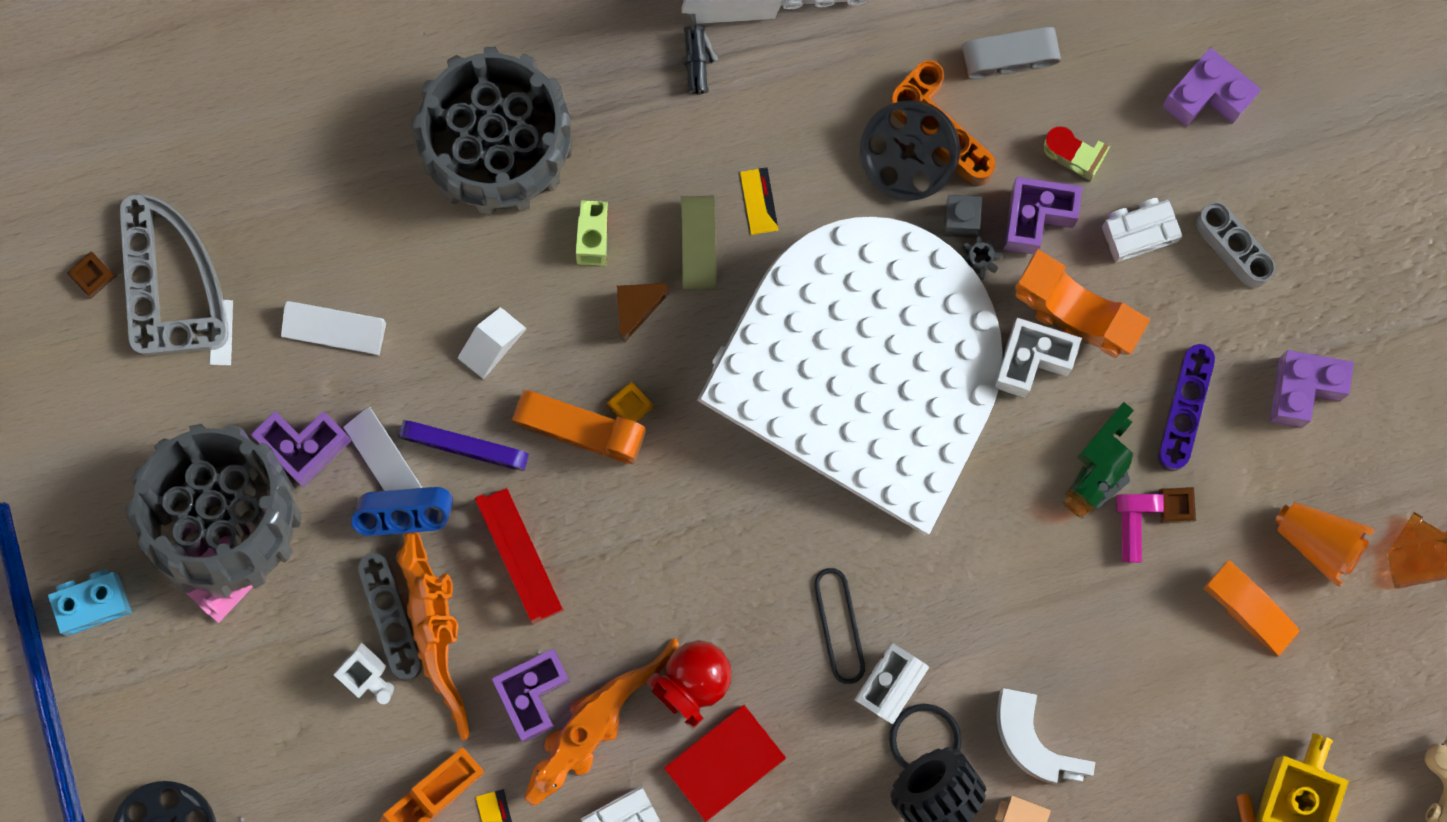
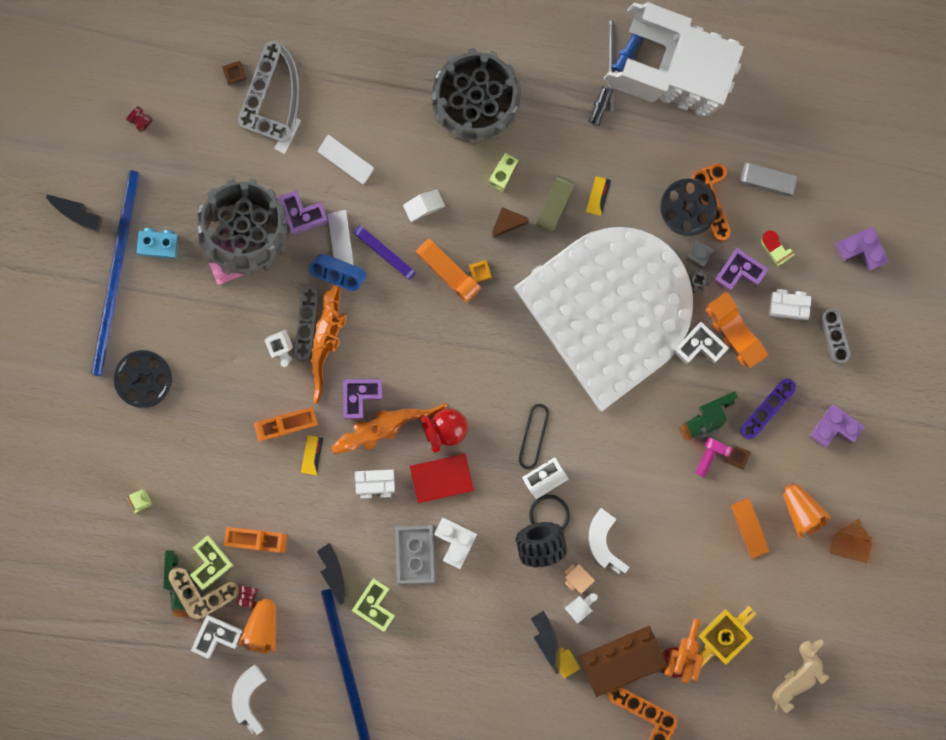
camera: 25 degrees right, 5 degrees up
(519, 555) = (386, 322): red fence -> none

